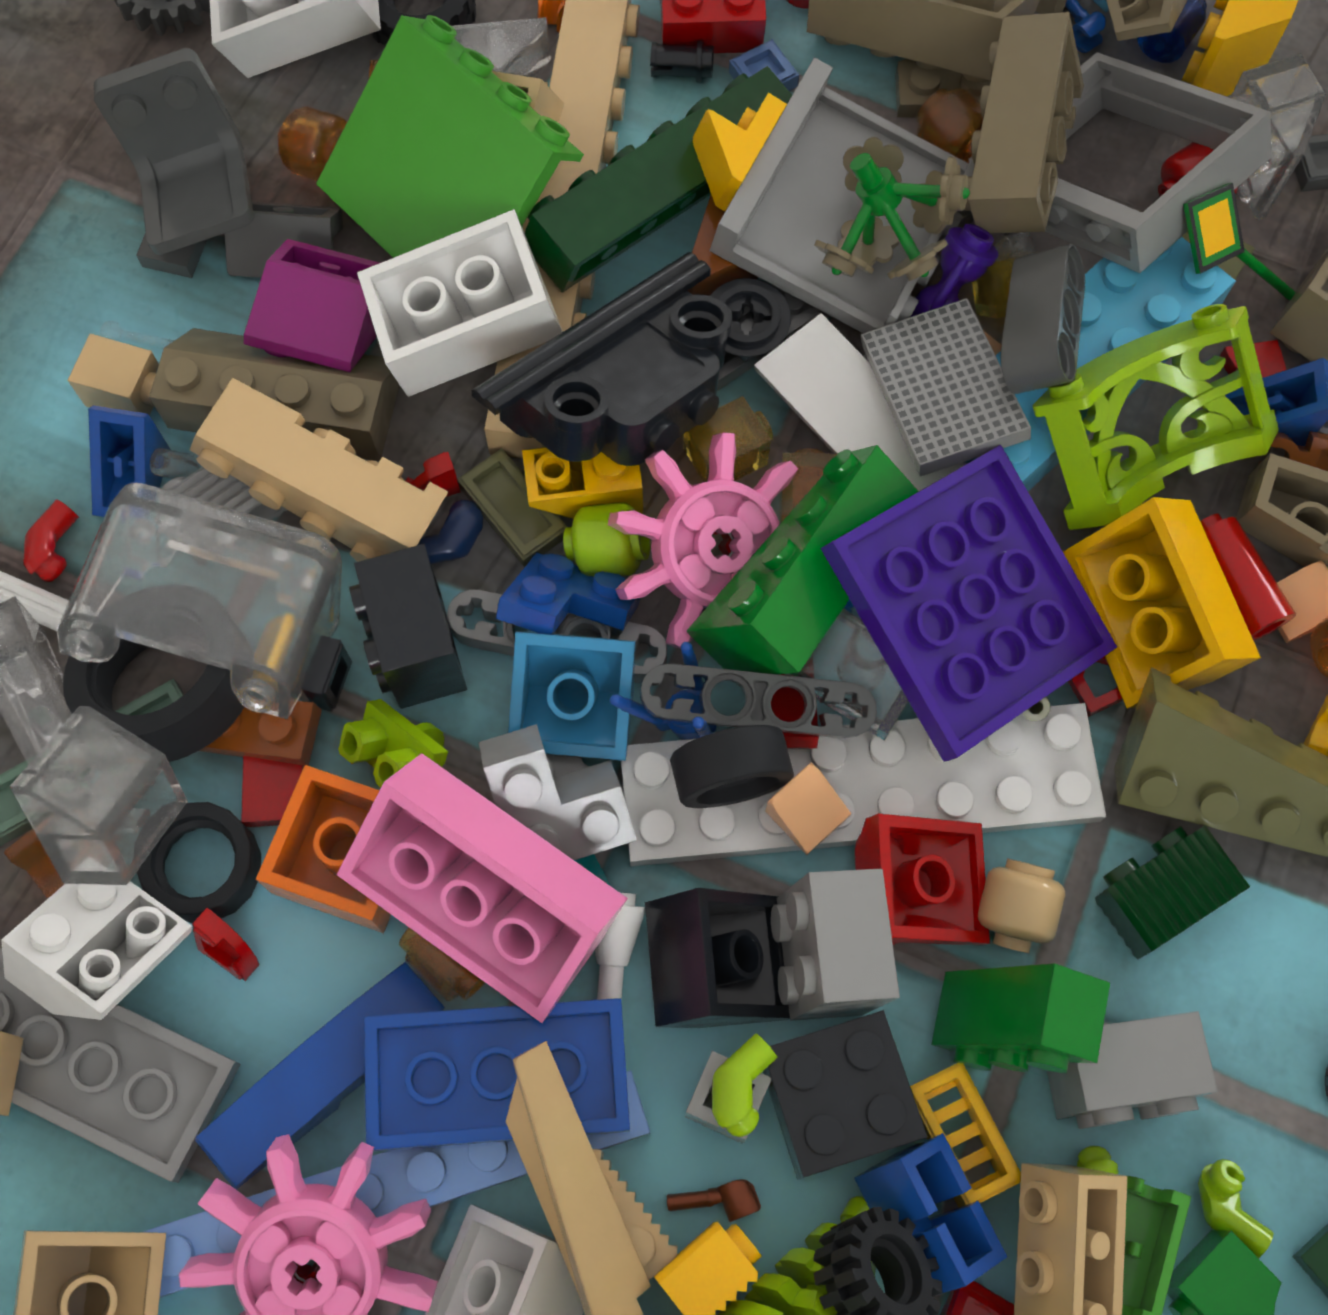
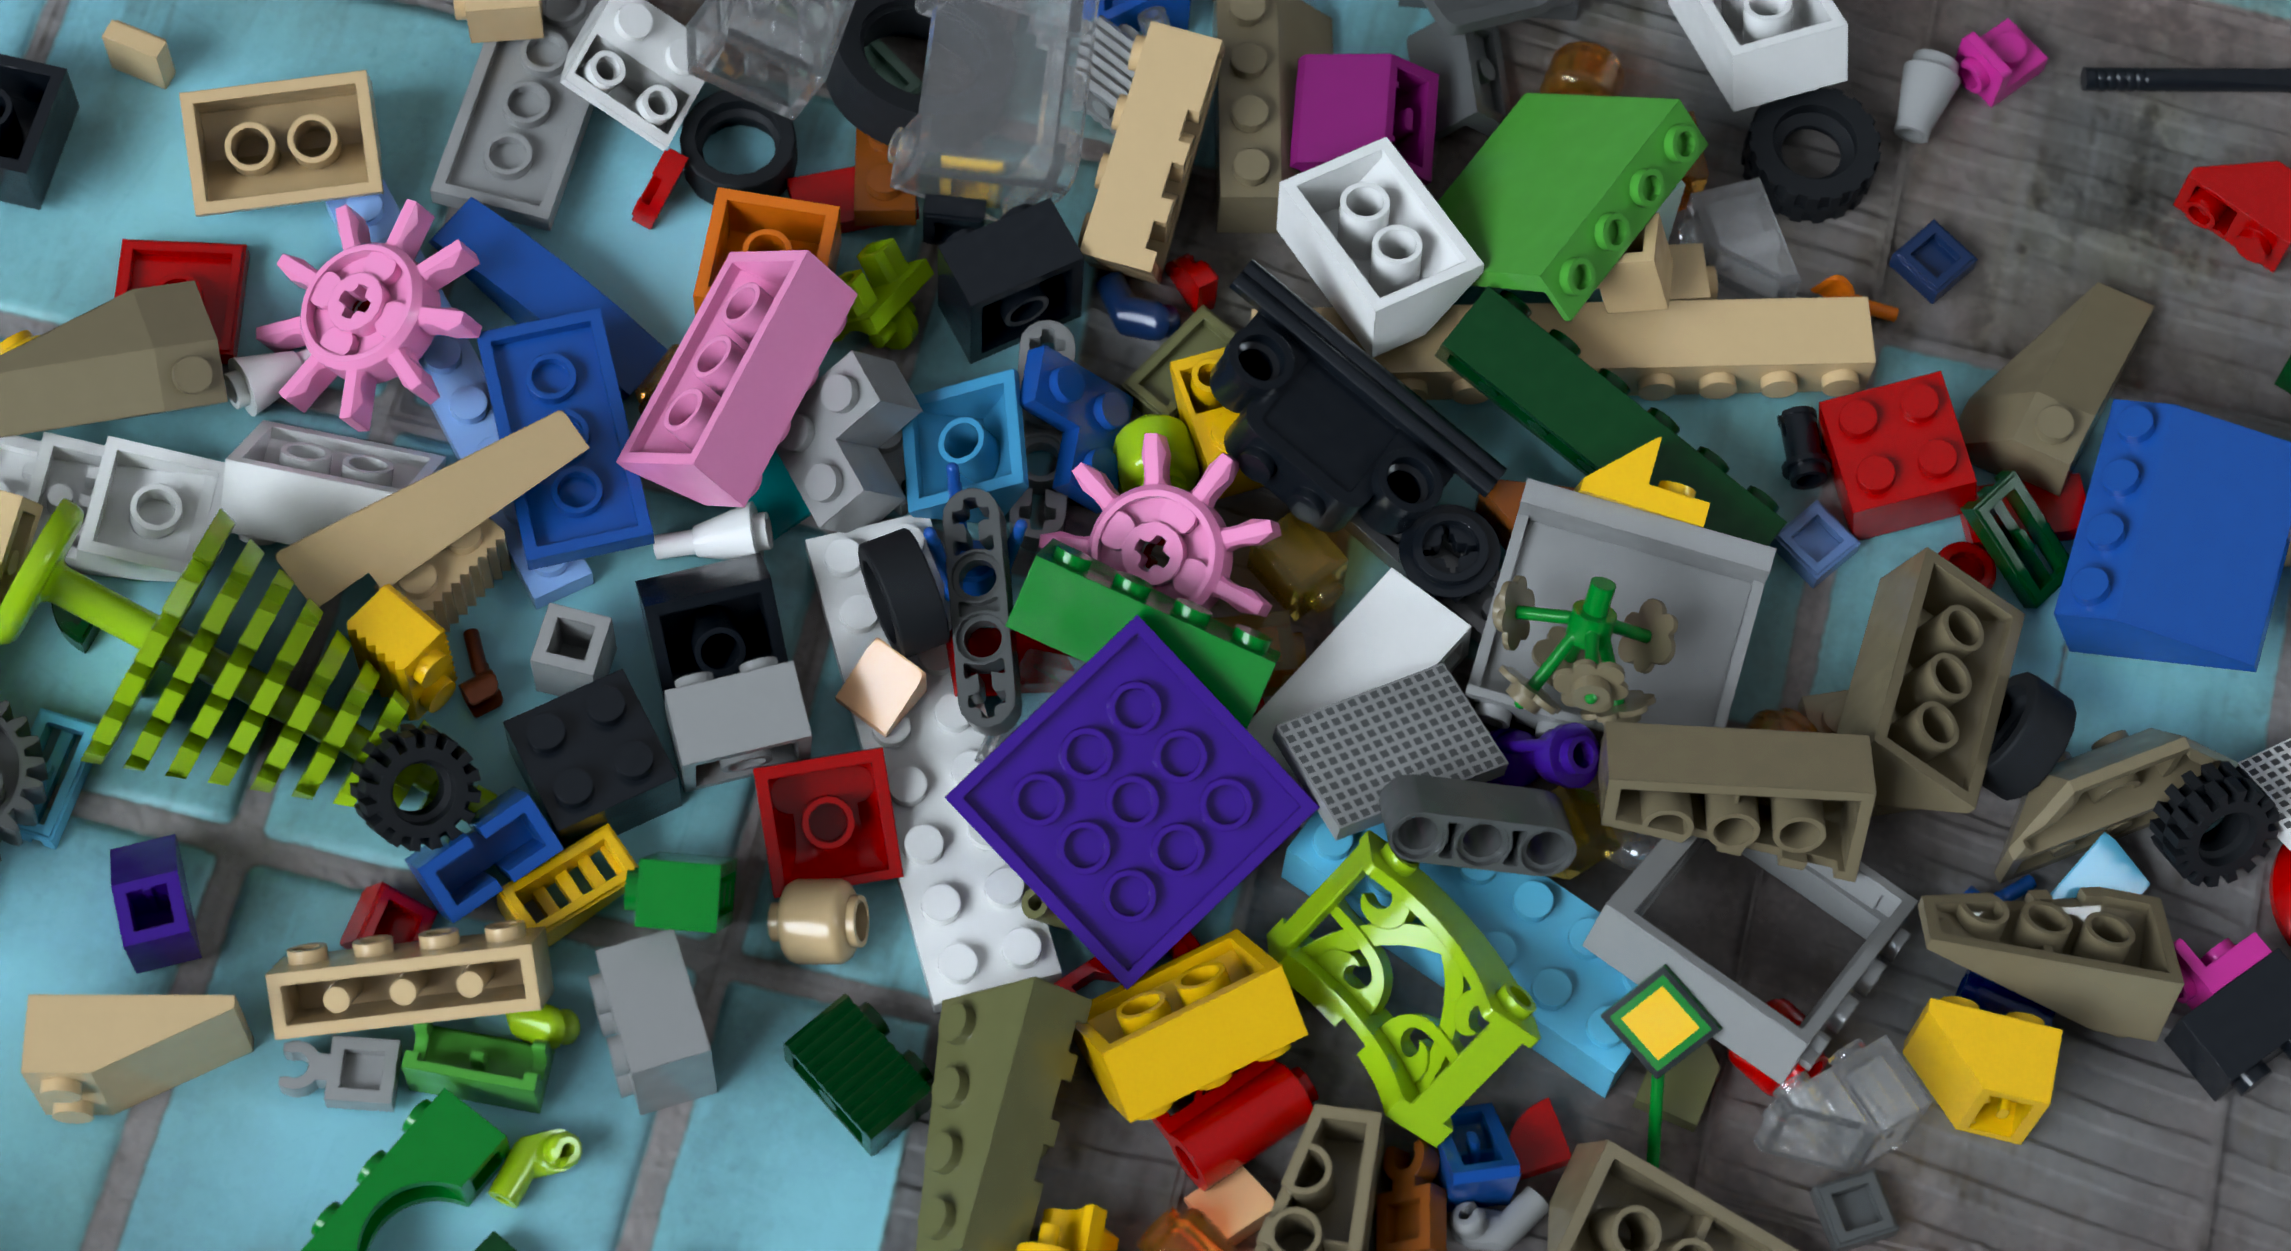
camera: 75 degrees right, 5 degrees down
(733, 1086) = (581, 632): lime arm -> none

